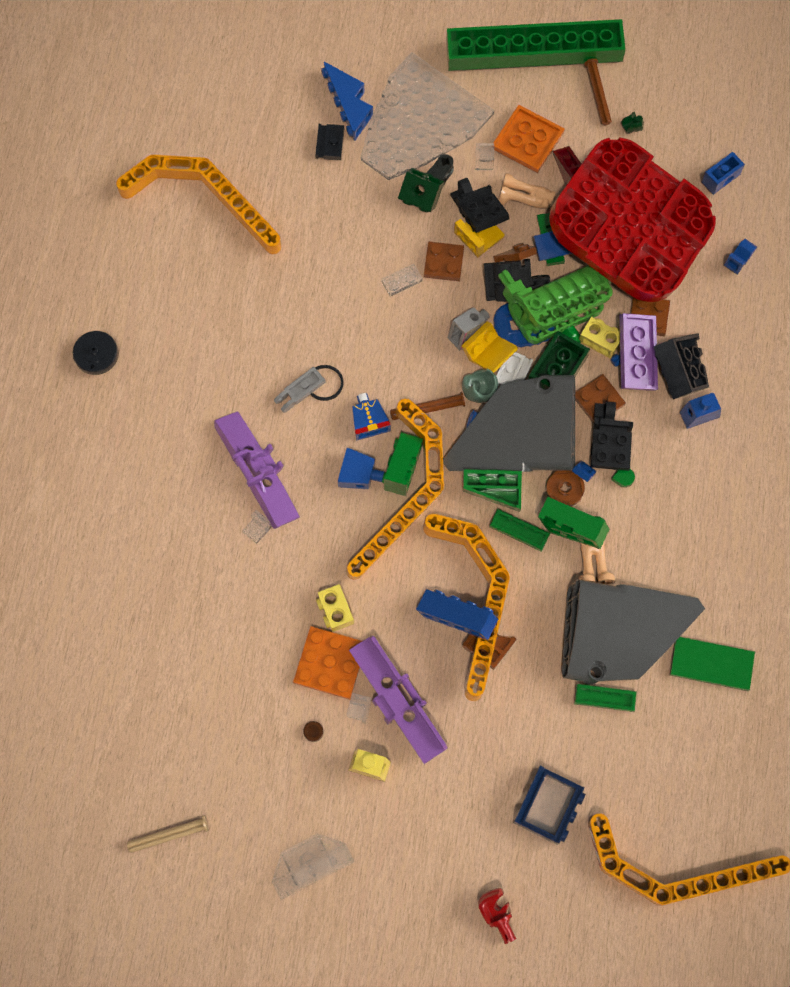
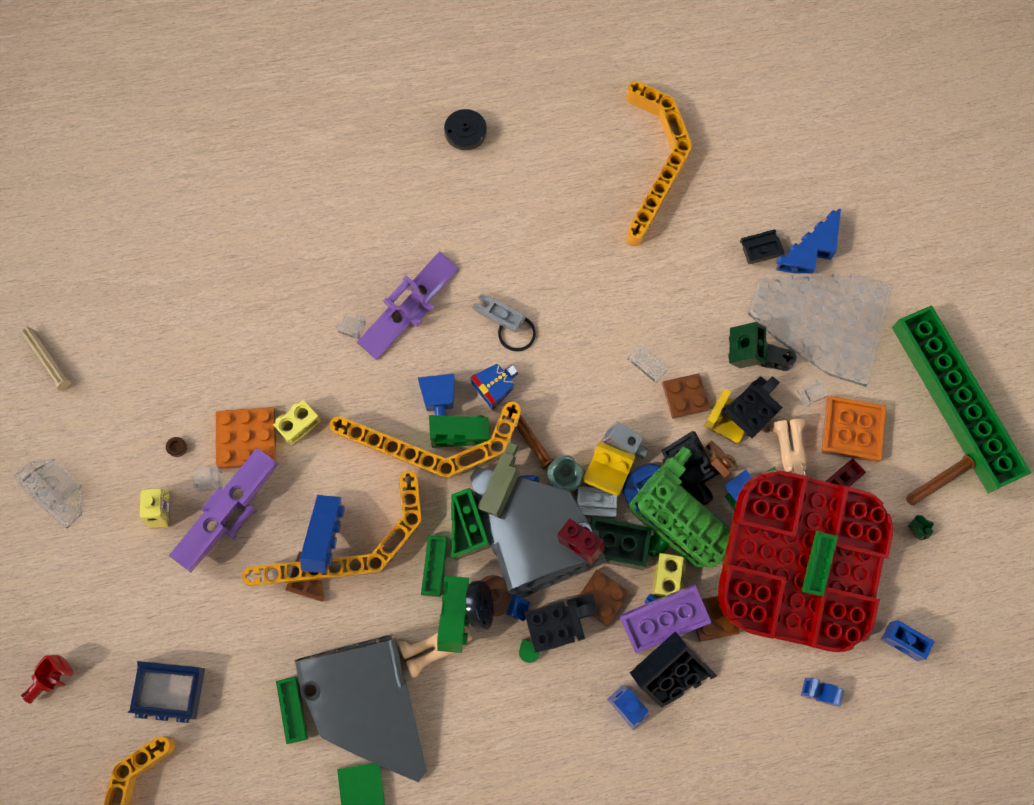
camera: 65 degrees right, 0 degrees up
(470, 441) = (501, 483): none -> olive piece
(556, 385) = (581, 541): none -> dark red brick
(575, 496) = (479, 605): none -> black wheel
(640, 208) = (819, 563): none -> green plate

